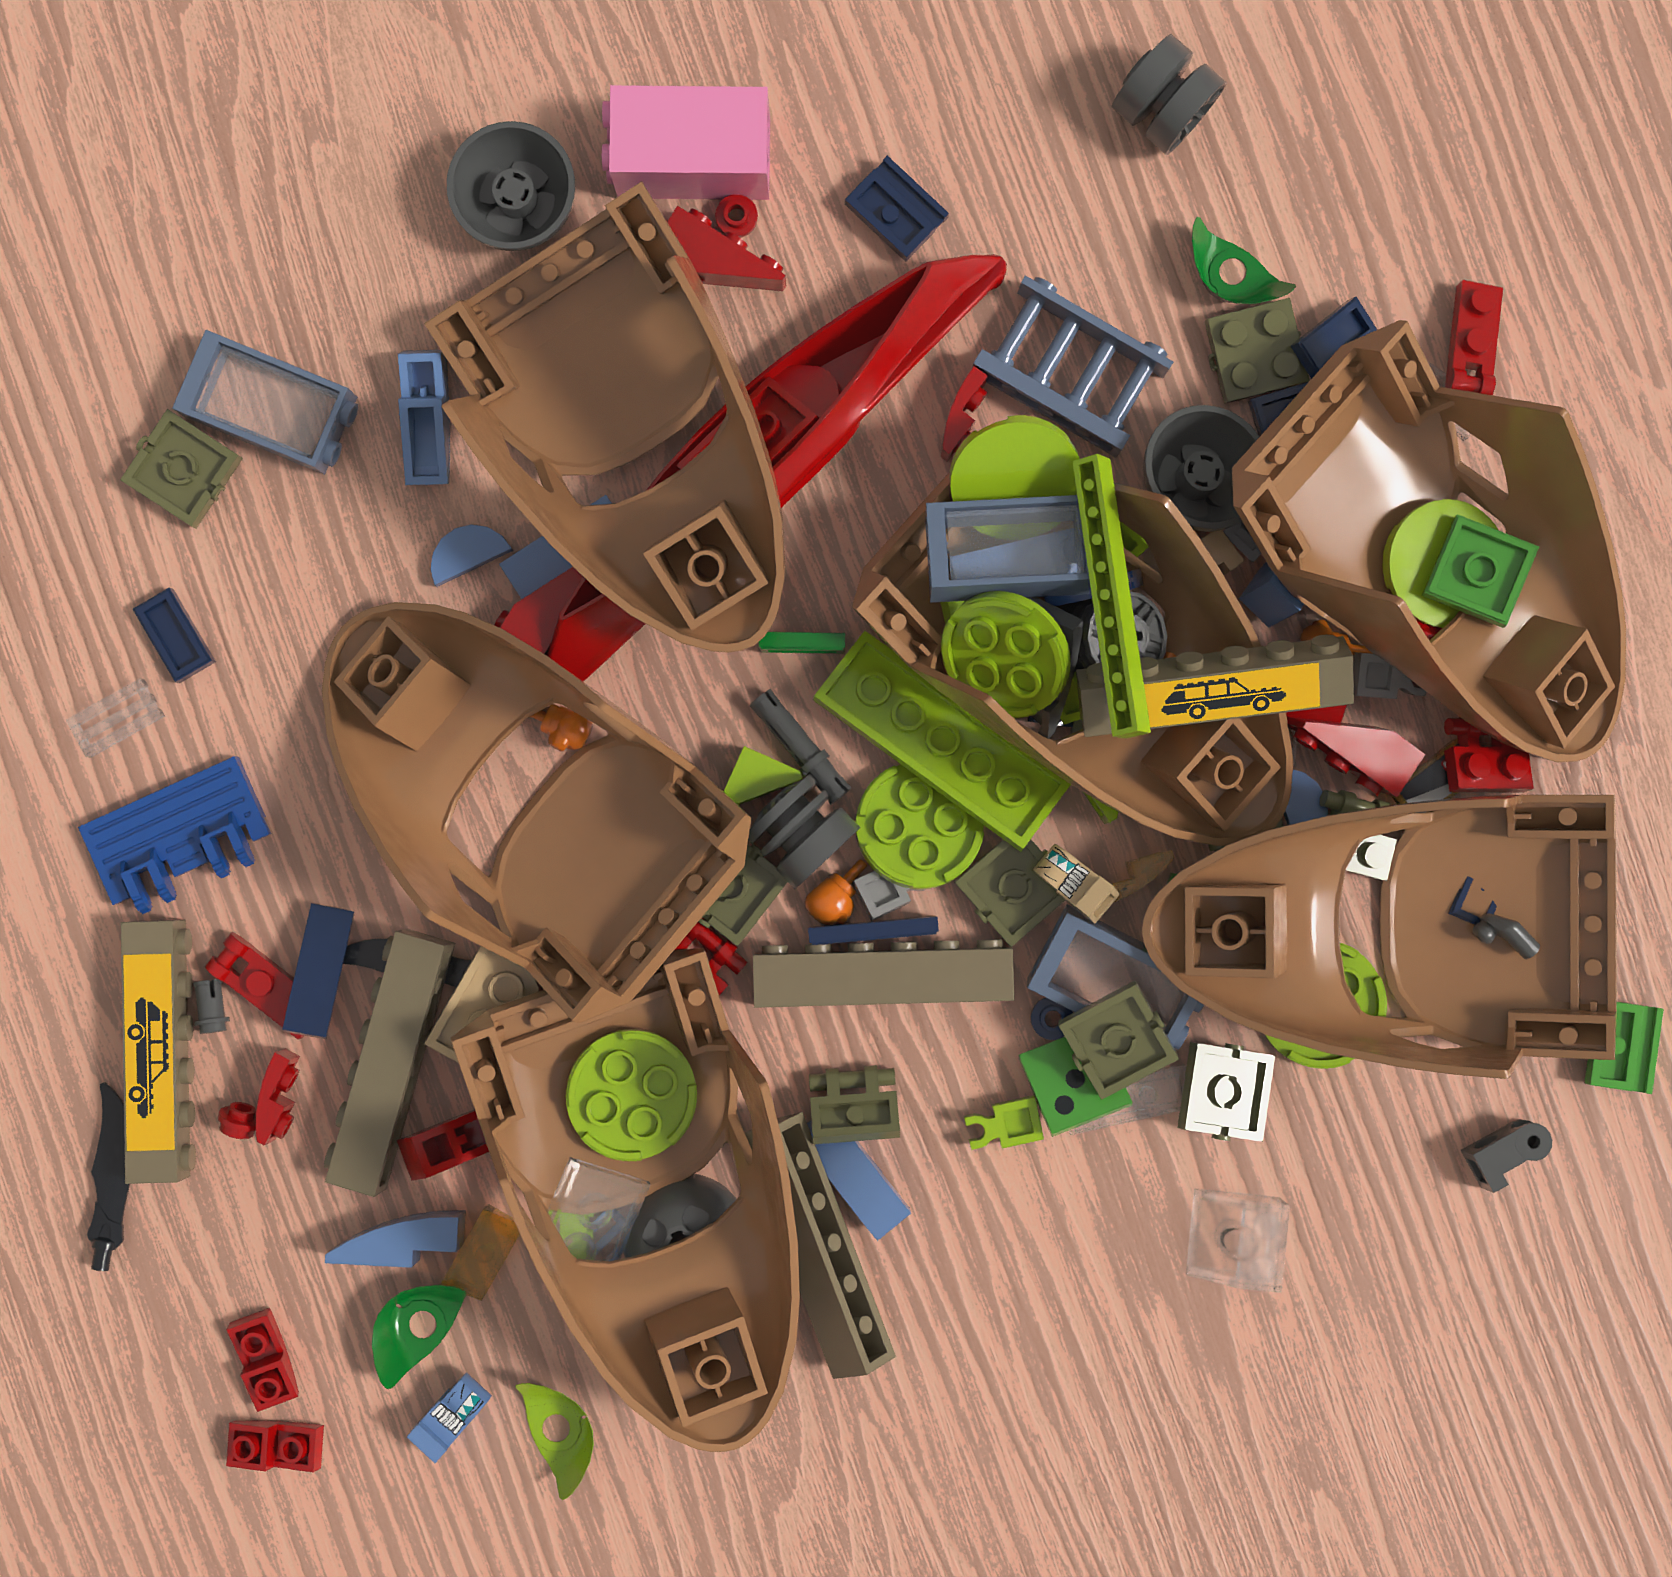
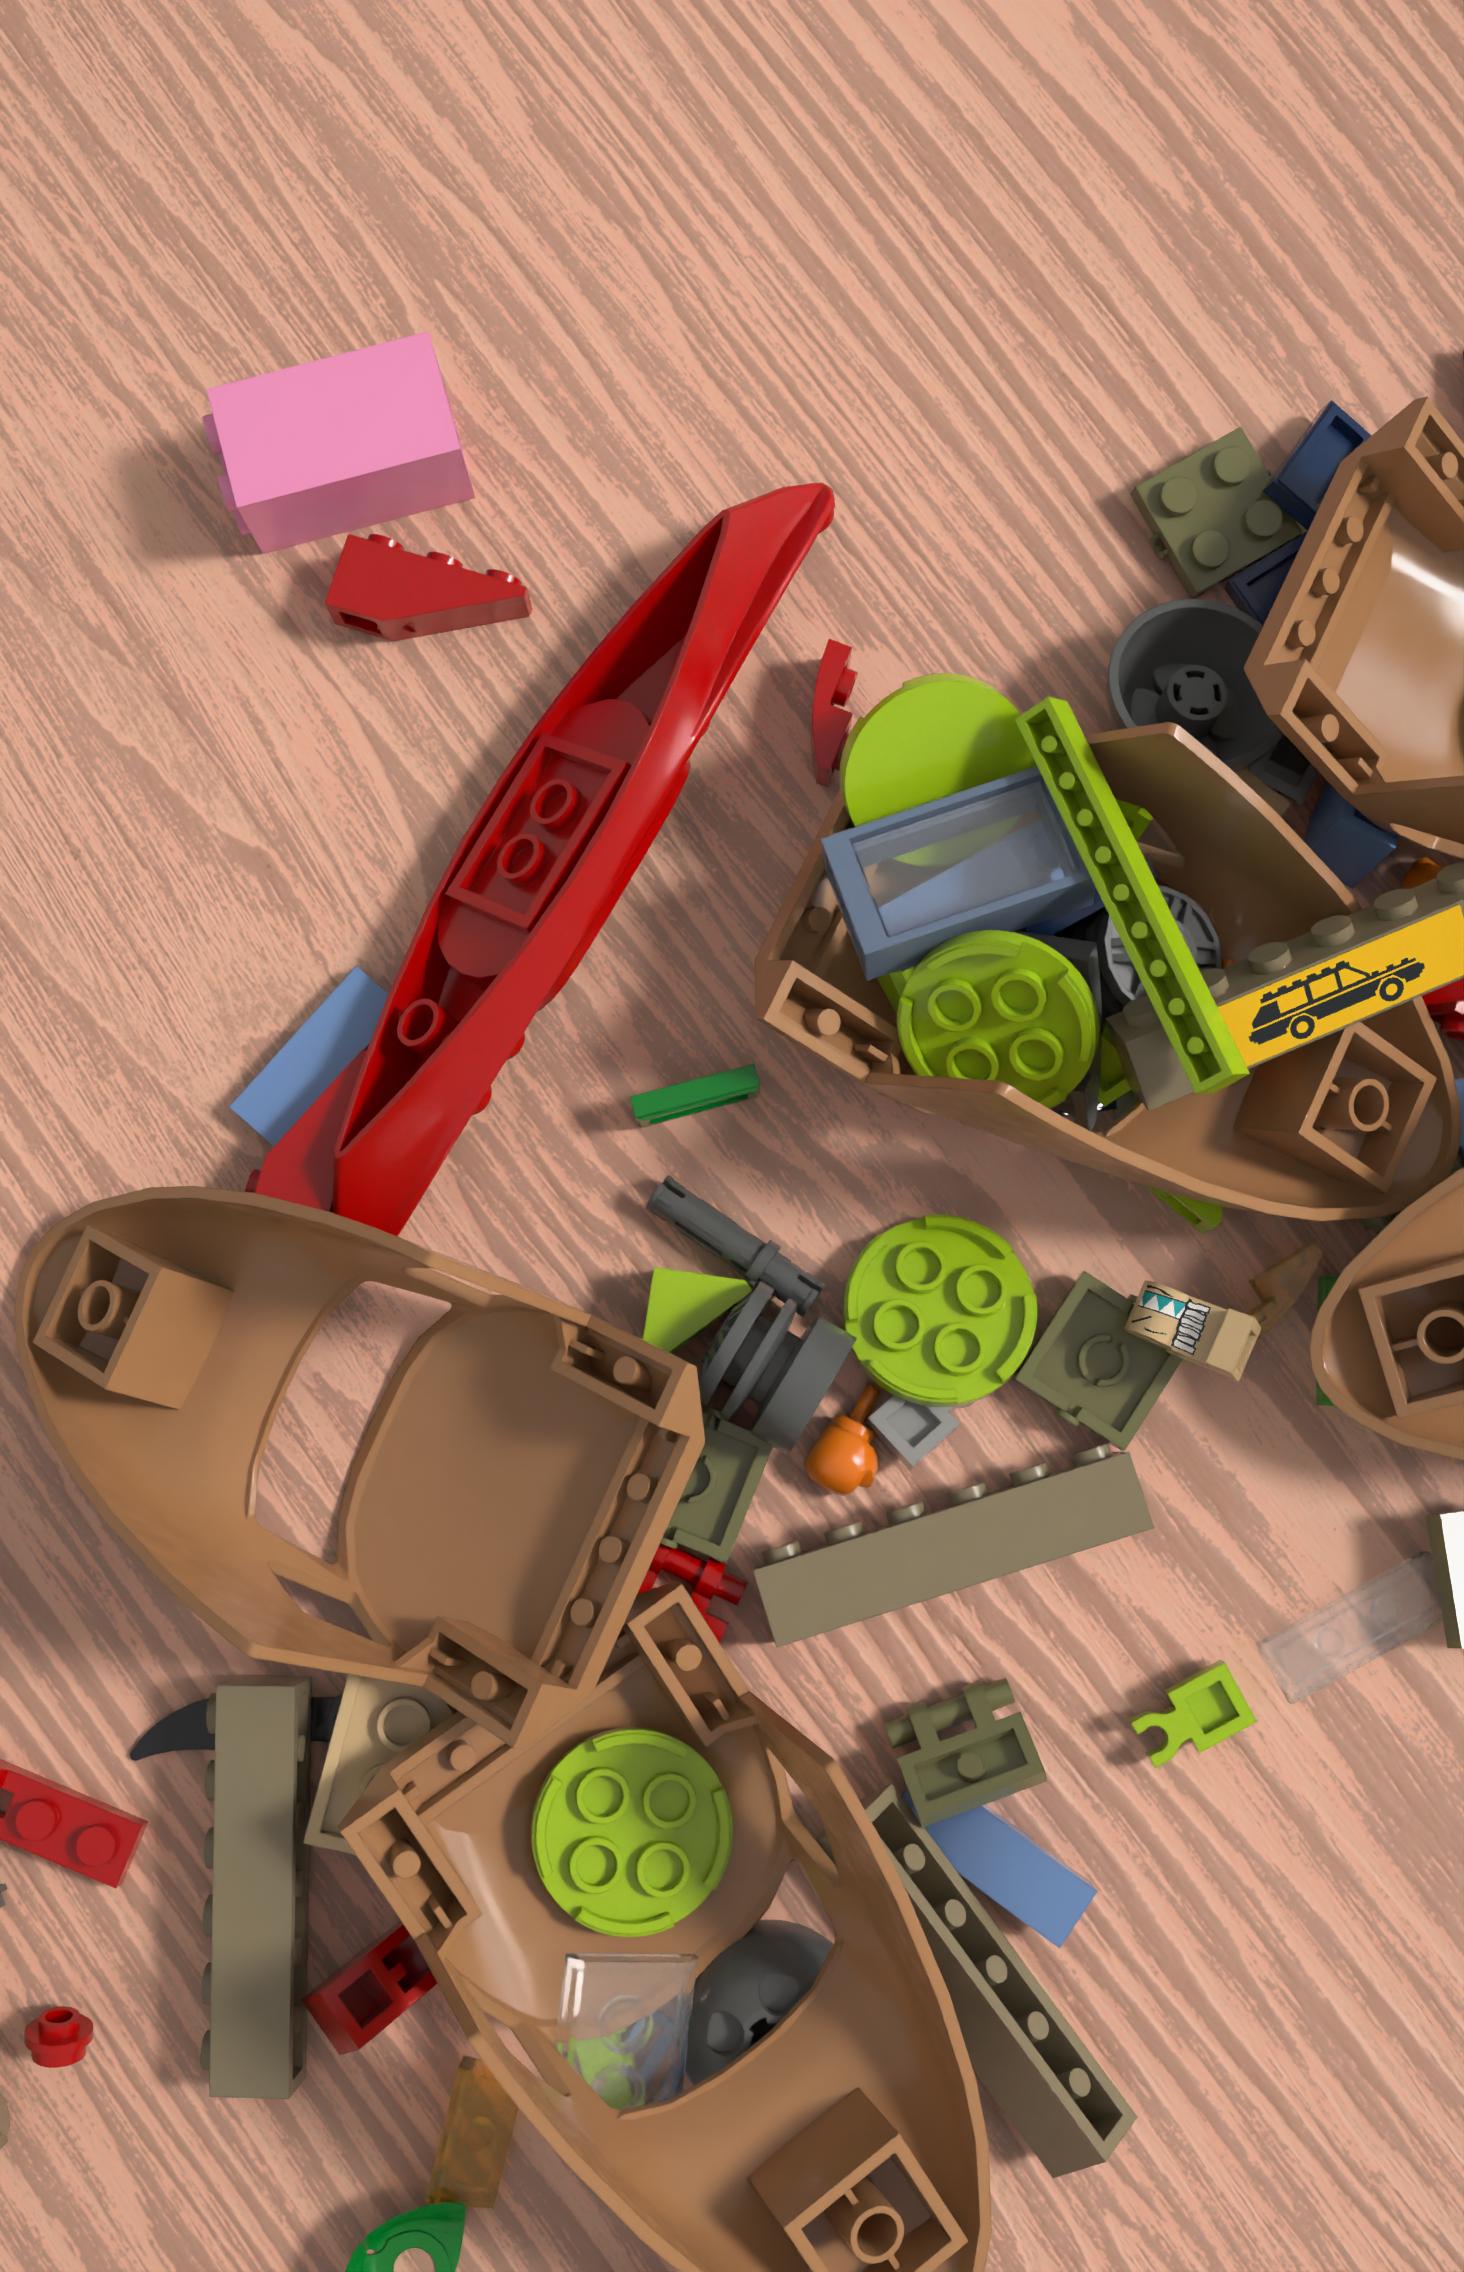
camera: 10 degrees left, 5 degrees down
(272, 1107) = (105, 2002): red slope -> none
(318, 971) = (119, 1778): dark blue tile -> none
(402, 1240) = (349, 2150): medium blue slope -> none
(422, 418) = (68, 928): medium blue slope -> none
(466, 550) = (176, 1102): medium blue tile -> none
(502, 166) = (89, 546): dark grey piece -> none
(564, 727) = (386, 1314): orange piece -> none
(591, 366) = (290, 787): medium nougat piece -> none
(746, 224) = (447, 542): red plate -> none
(873, 930) = (917, 1482): dark blue tile -> none
(896, 208) = (656, 458): dark blue plate -> none
(940, 741) = (938, 1181): lime plate -> none
(1038, 1018) = (1193, 1538): dark blue plate -> none
(1063, 1091) = (1276, 1620): bright green tile -> none
(1070, 409) = (922, 647): sand blue fence -> none
(1093, 960) = (1288, 1461): window -> none
(1118, 1040) = (1325, 1543): olive plate -> none
(1158, 87) = (973, 192): dark grey wheel -> none
(1213, 251) = (1186, 421): green piece -> none

